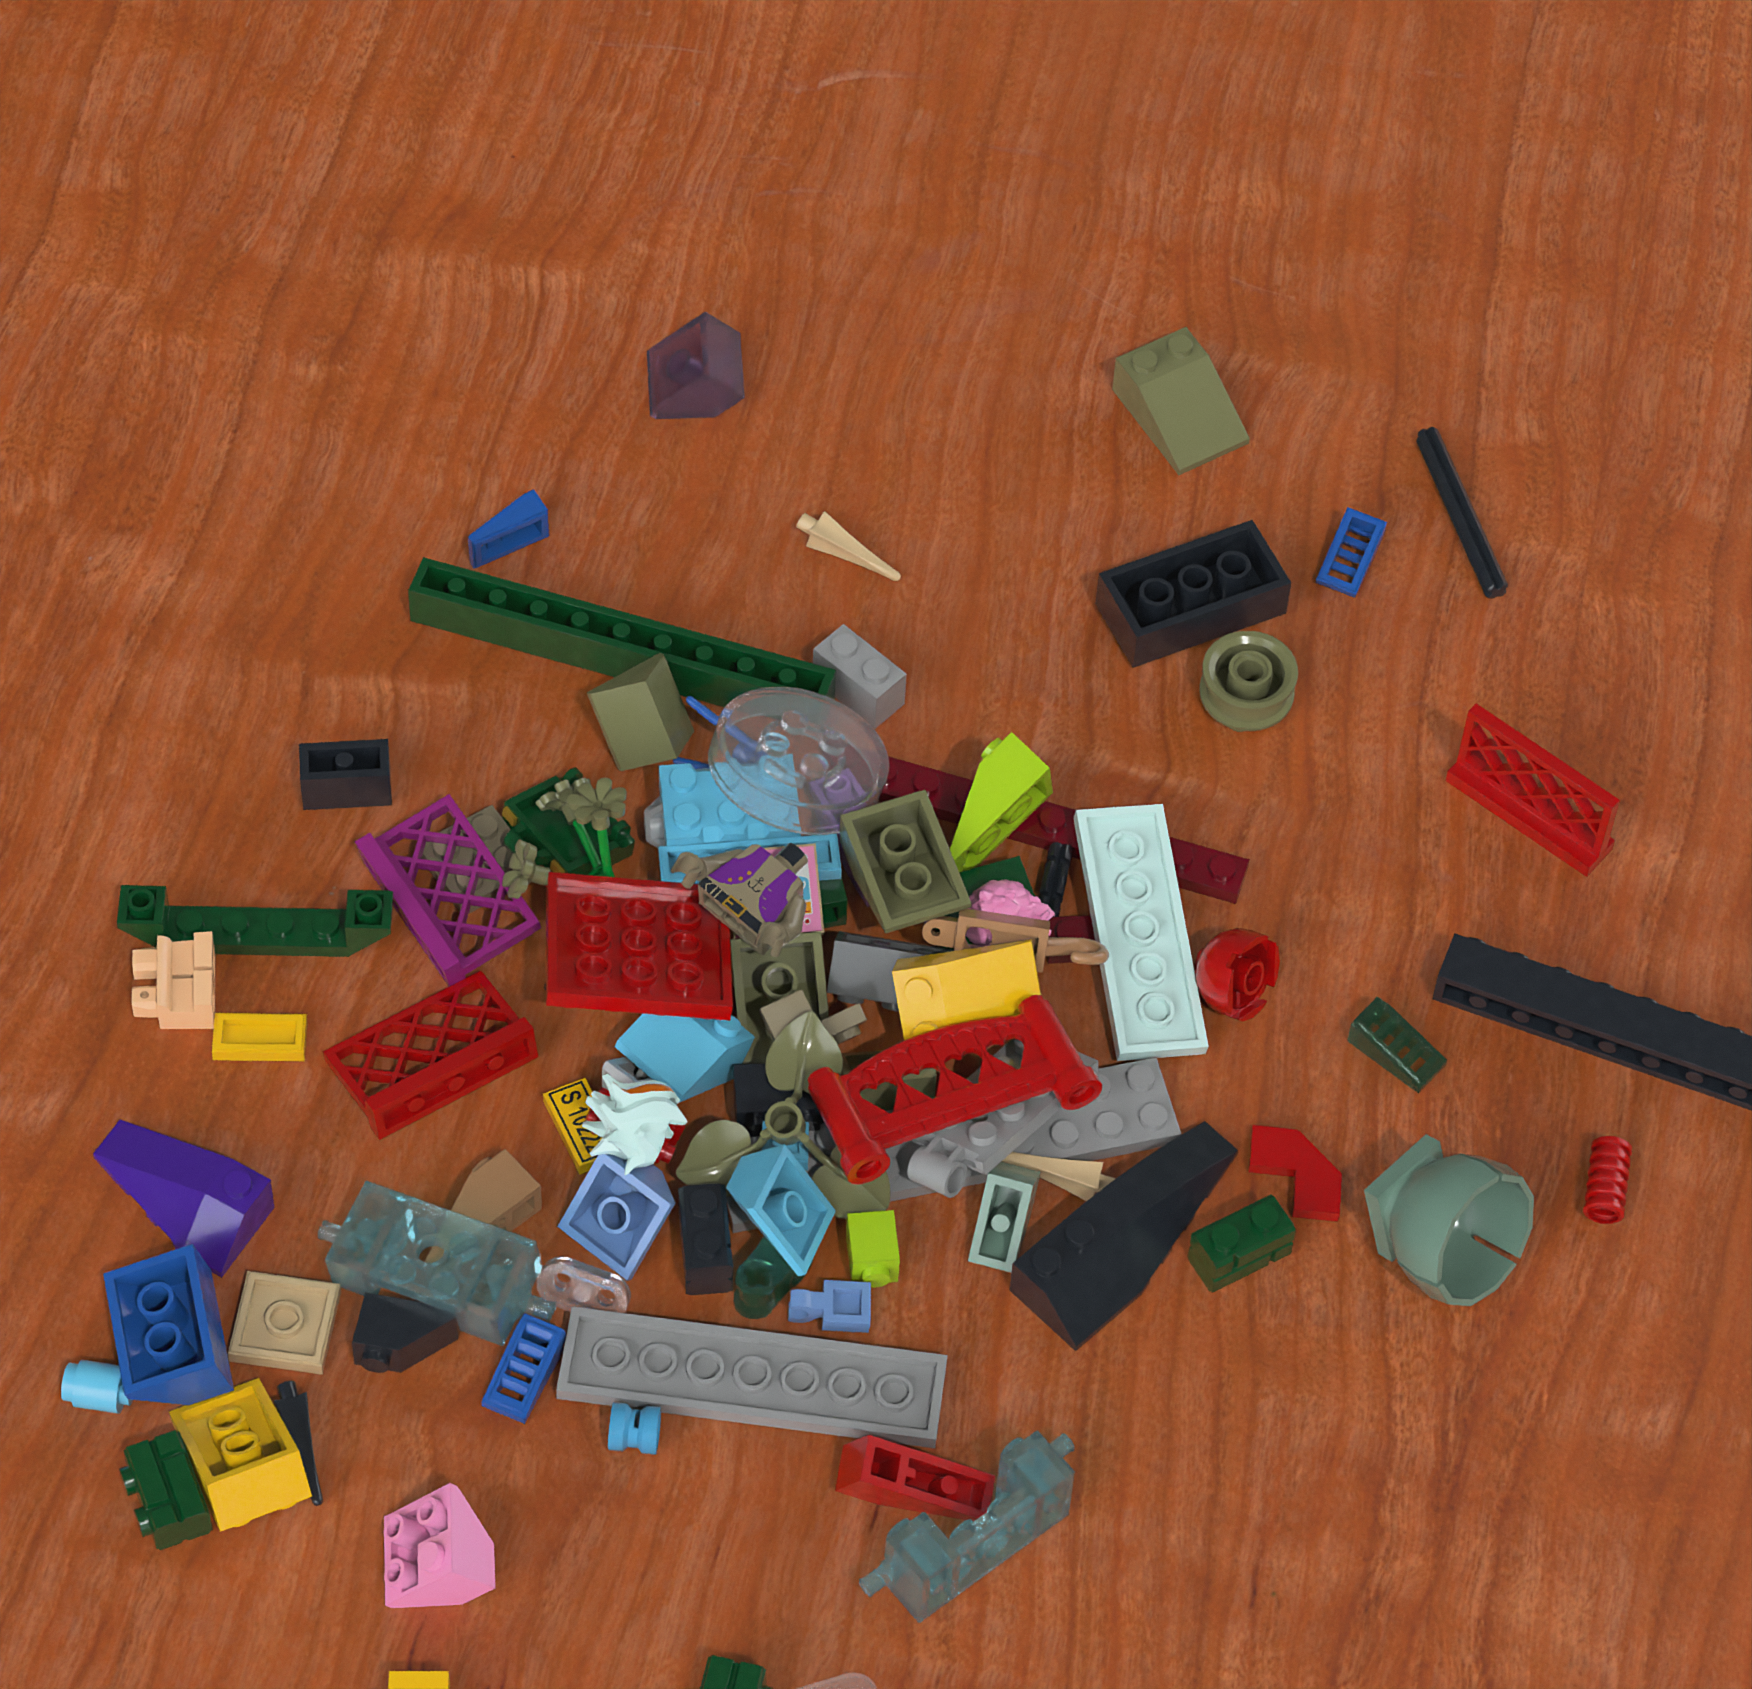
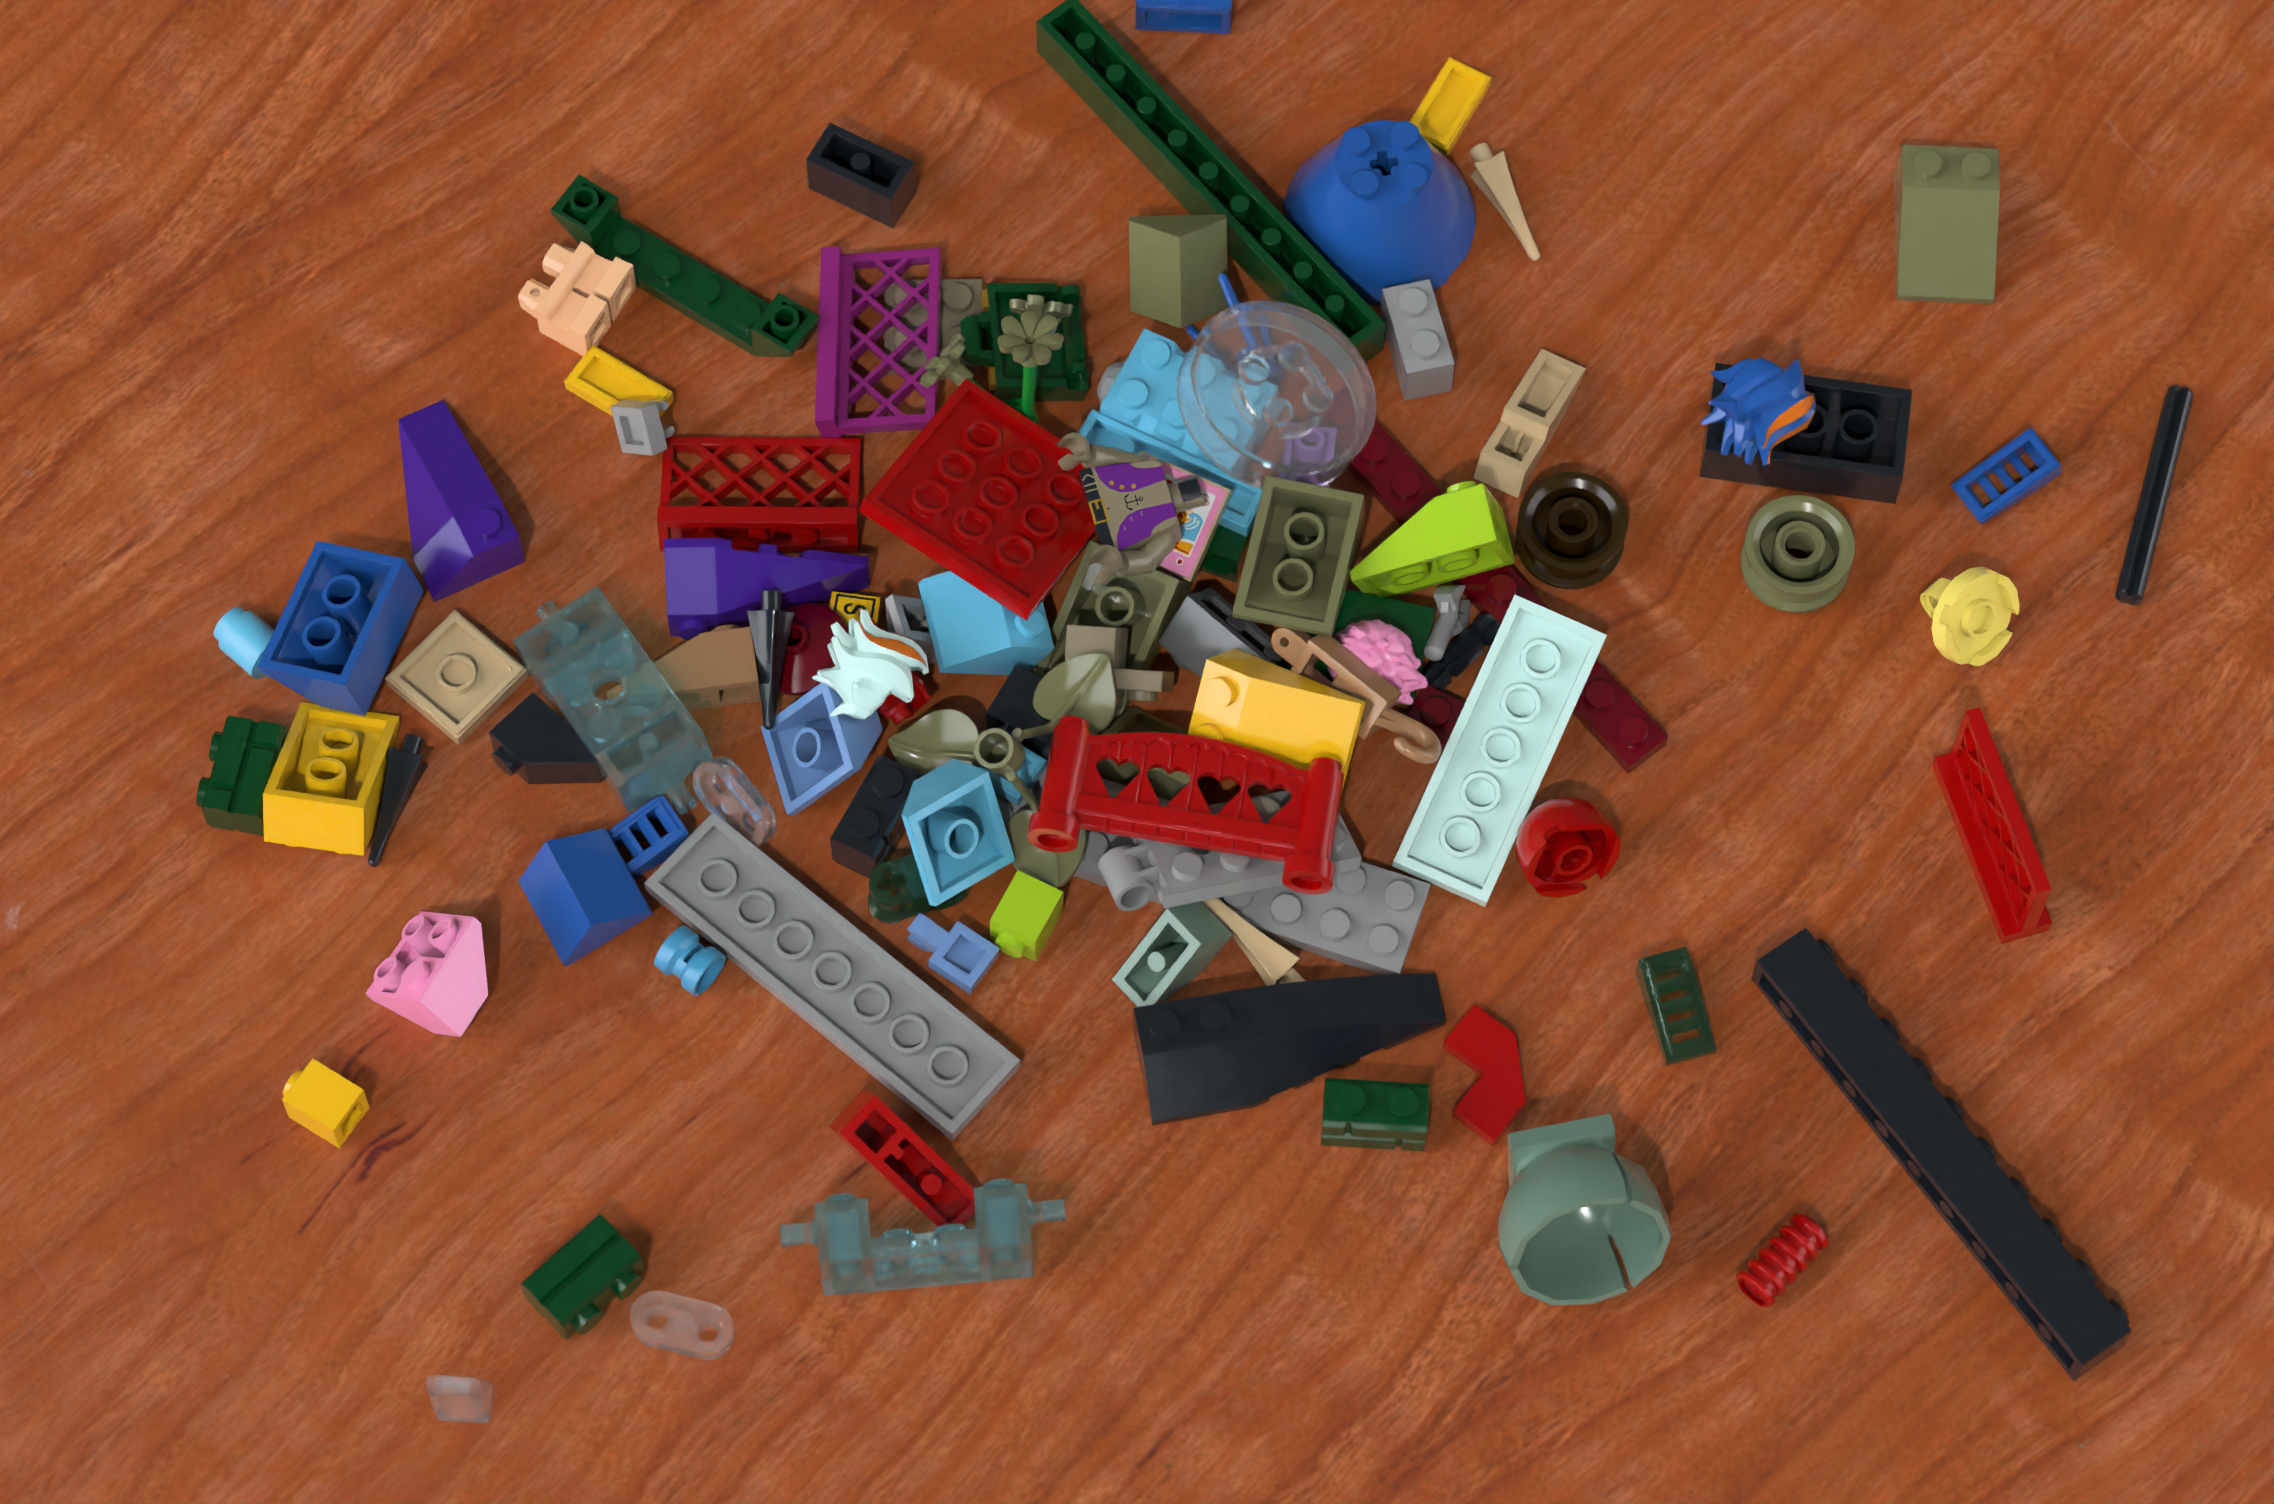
camera: 35 degrees right, 10 degrees up
(303, 1051) = (641, 427): none -> light grey tile
(459, 1129) = (718, 585): none -> dark purple wedge
(511, 1427) = (583, 893): none -> blue slope
(525, 1145) = (770, 637): none -> black piece
(564, 1159) = (802, 661): none -> dark red dish
(754, 505) = (1450, 104): none -> yellow tile
(762, 589) = (1383, 208): none -> blue cone
(982, 690) = (1528, 423): none -> tan slope
(1031, 861) = (1451, 621): none -> light grey bar
(1097, 742) = (1571, 559): none -> dark brown wheel
(1163, 579) = (1760, 406): none -> blue hair
(1403, 656) = (1971, 614): none -> light yellow tile

